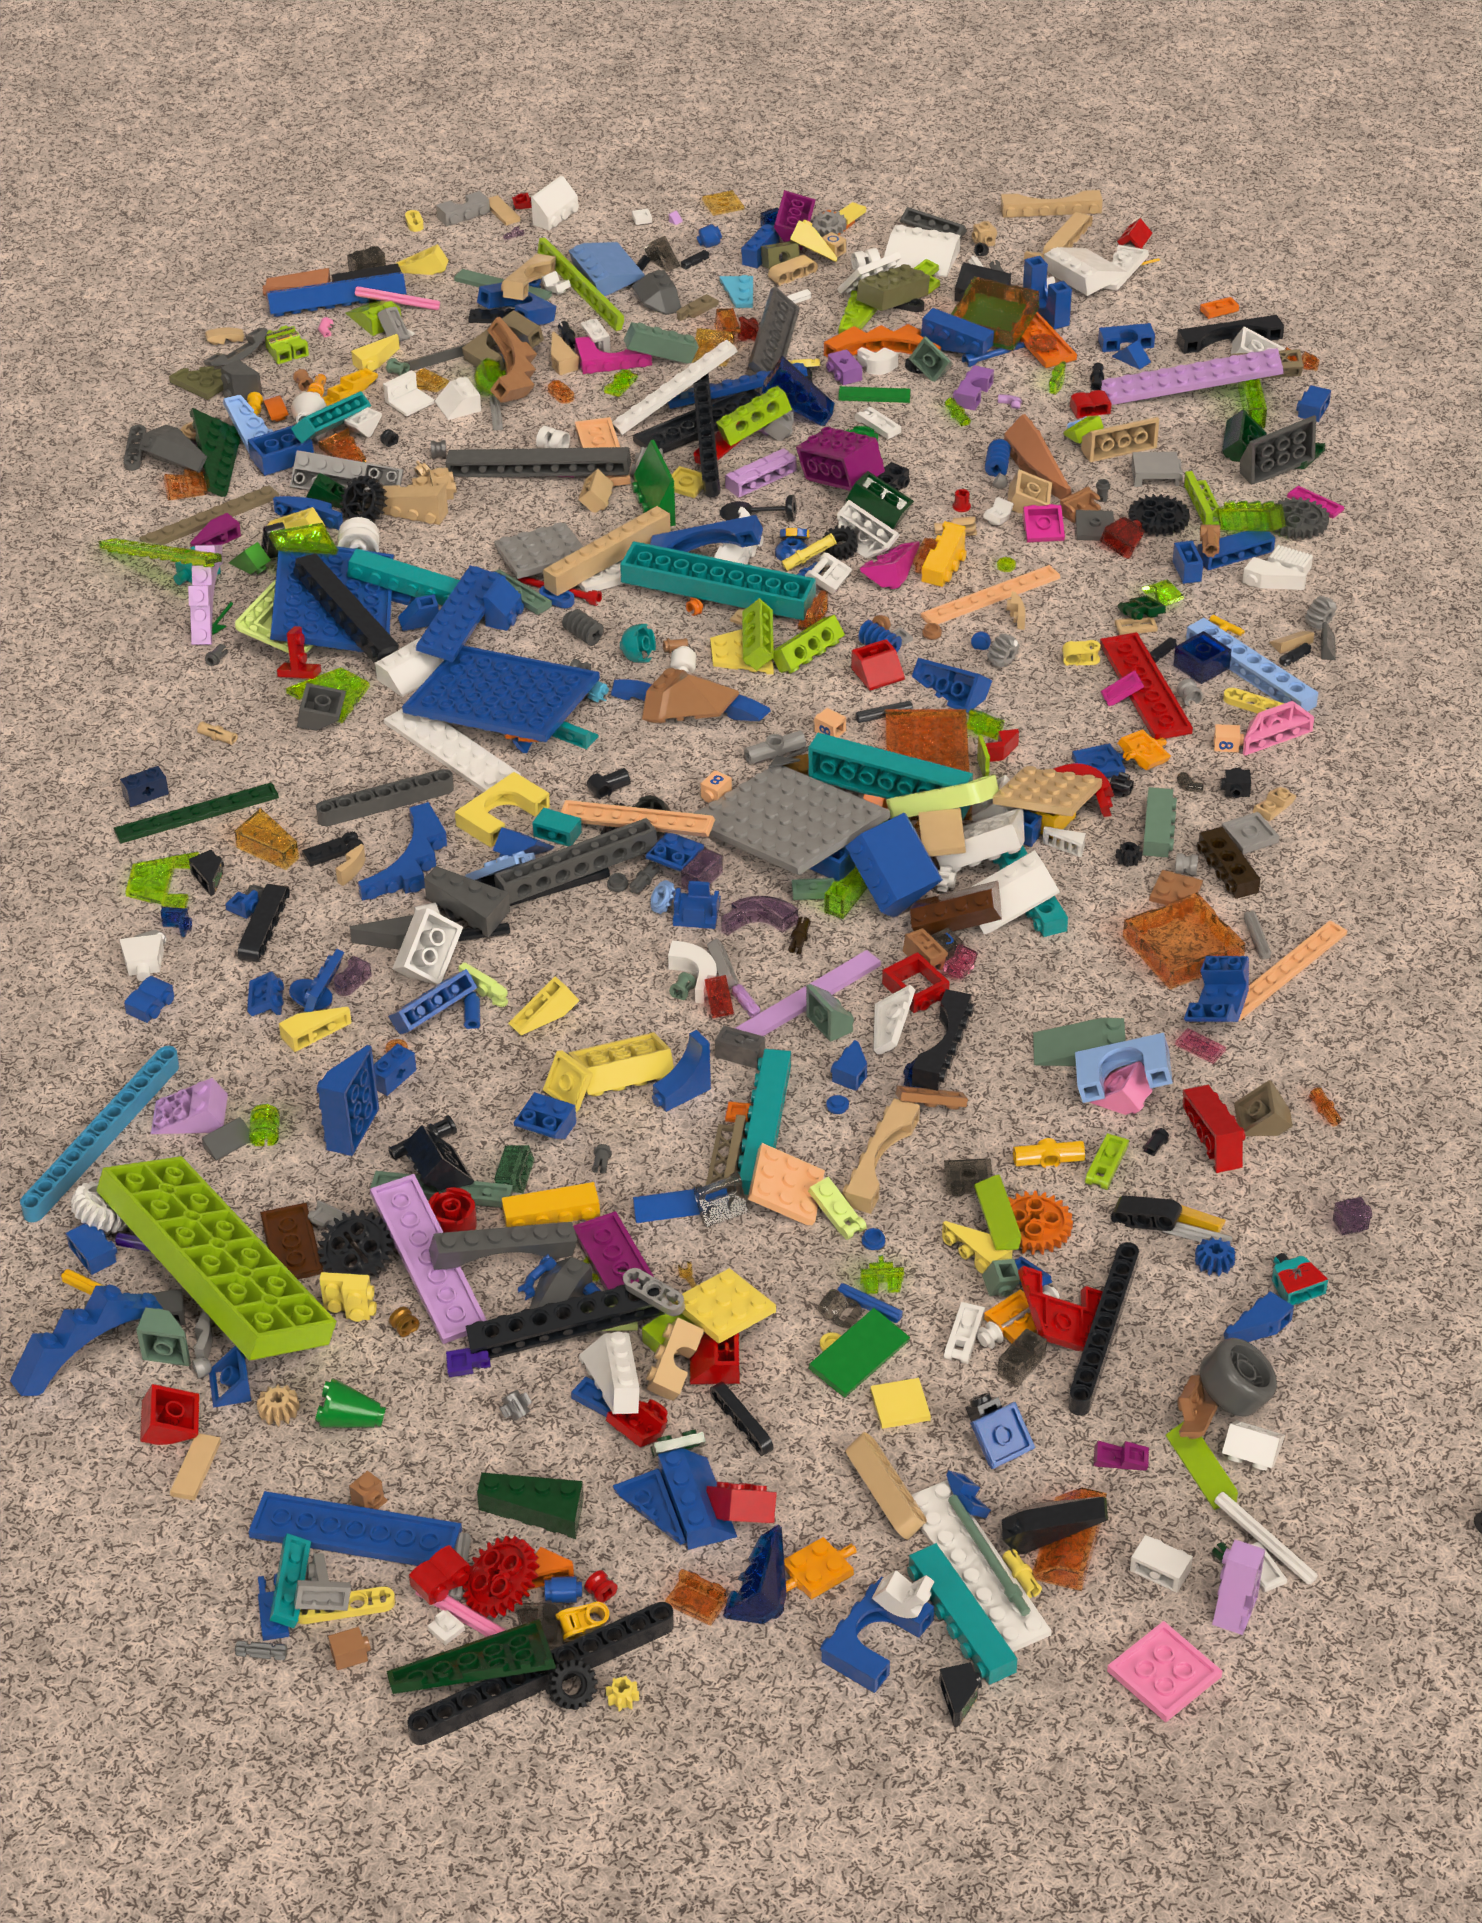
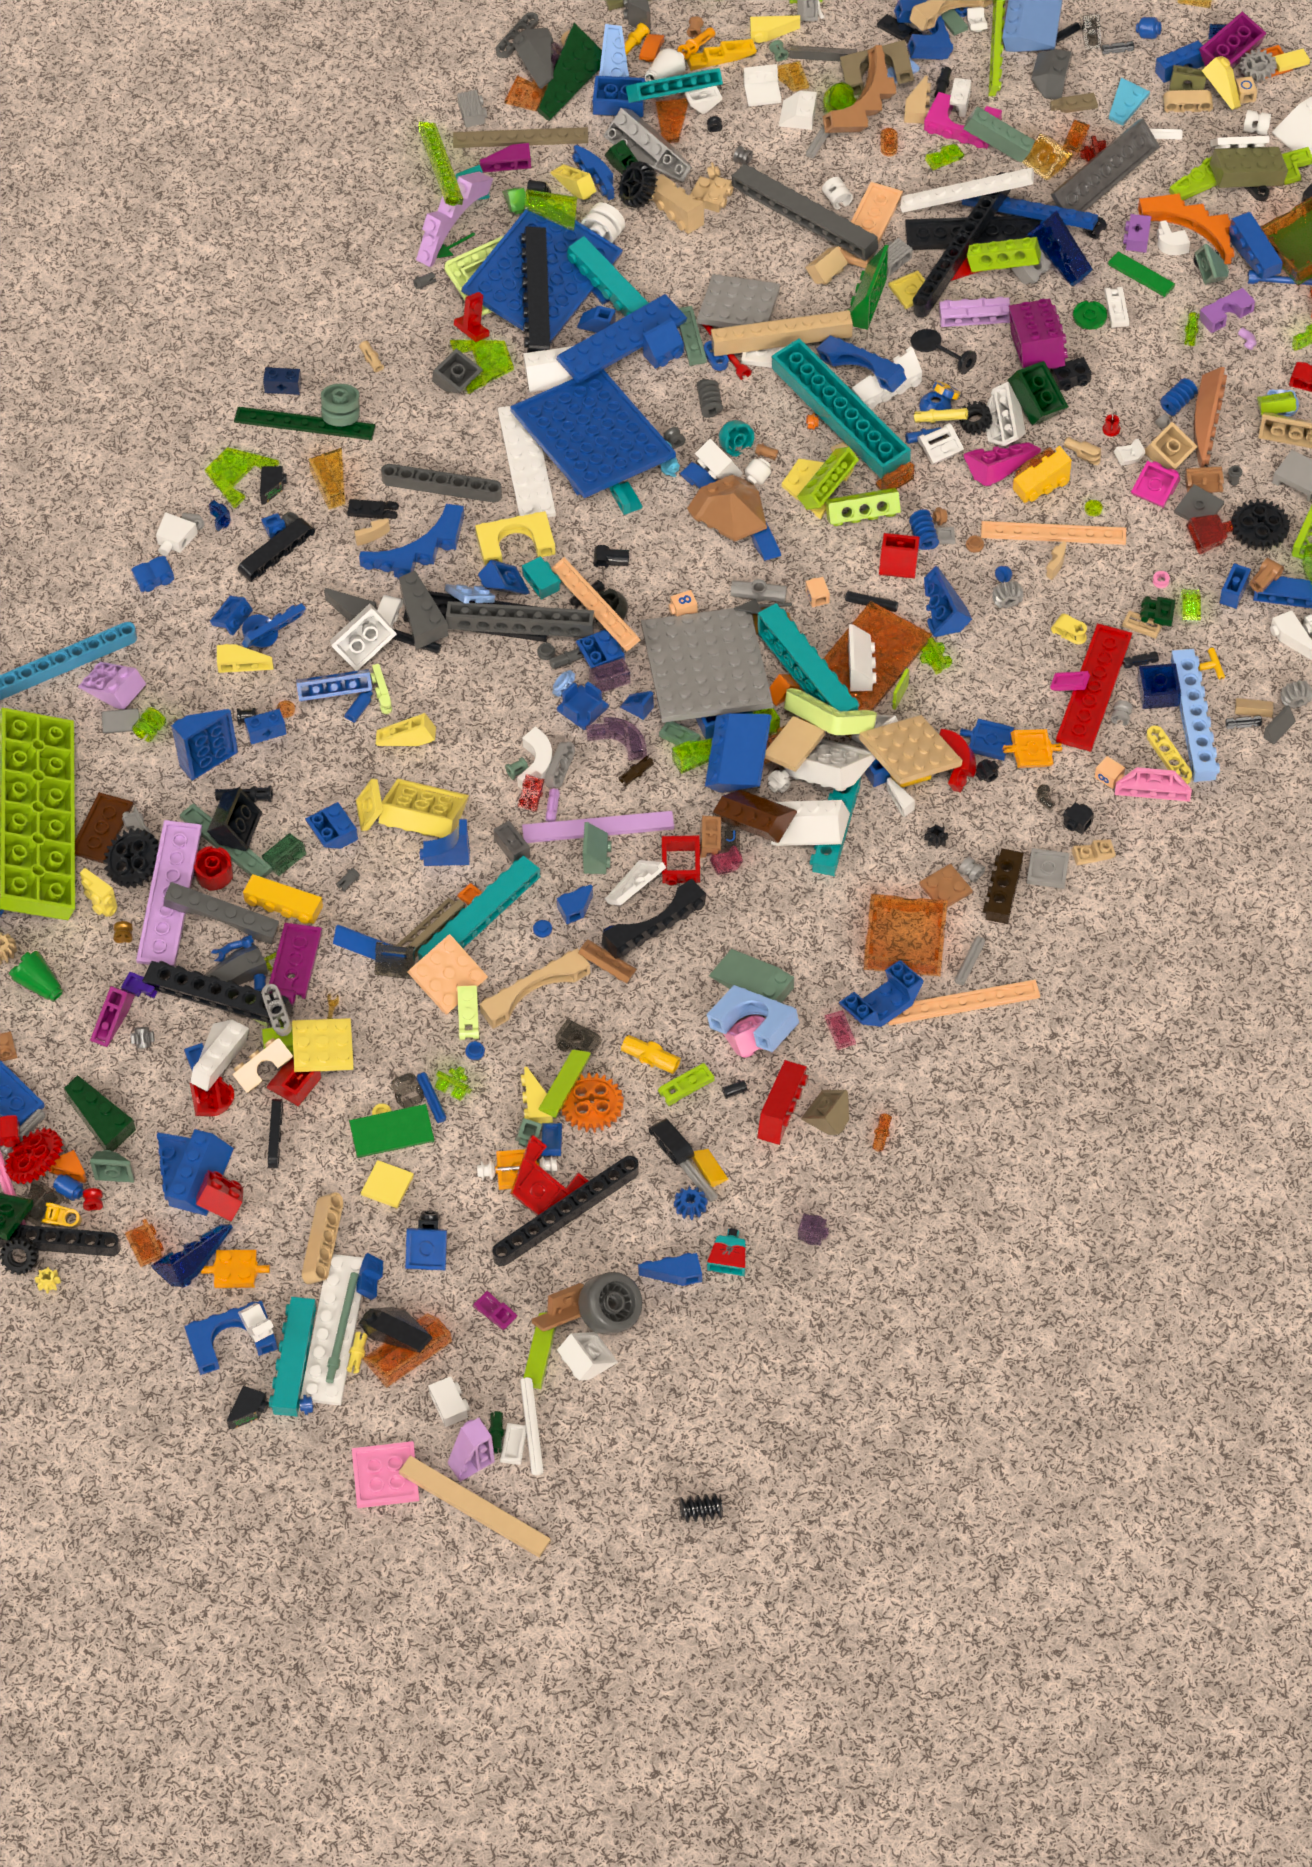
camera: 35 degrees right, 15 degrees up
(141, 513) = (471, 108): none -> light grey brick
(225, 777) = (340, 404): none -> sand green wheel
(353, 976) = (299, 632): leg -> none
(462, 1403) = (112, 1015): none -> magenta slope
(598, 1541) = (111, 1167): none -> sand green slope
(641, 664) = (717, 461): none -> white slope
(688, 1441) = (221, 1129): plate -> none
(749, 881) = (639, 704): none -> blue slope
(807, 362) = (1106, 212): light yellow tile -> none
(922, 745) = (861, 660): none -> white slope
(964, 1332) = (471, 1157): white plate -> none
(1006, 743) = (937, 682): red slope -> none
(1021, 1650) = (306, 1404): none -> blue plate
(1022, 1357) = (490, 1200): clear smoke brick -> none
(1121, 590) = (1162, 584): none -> bright pink bush
(1158, 822) = (985, 819): sand green brick -> none
(1285, 1645) = (474, 1506): none -> tan tile

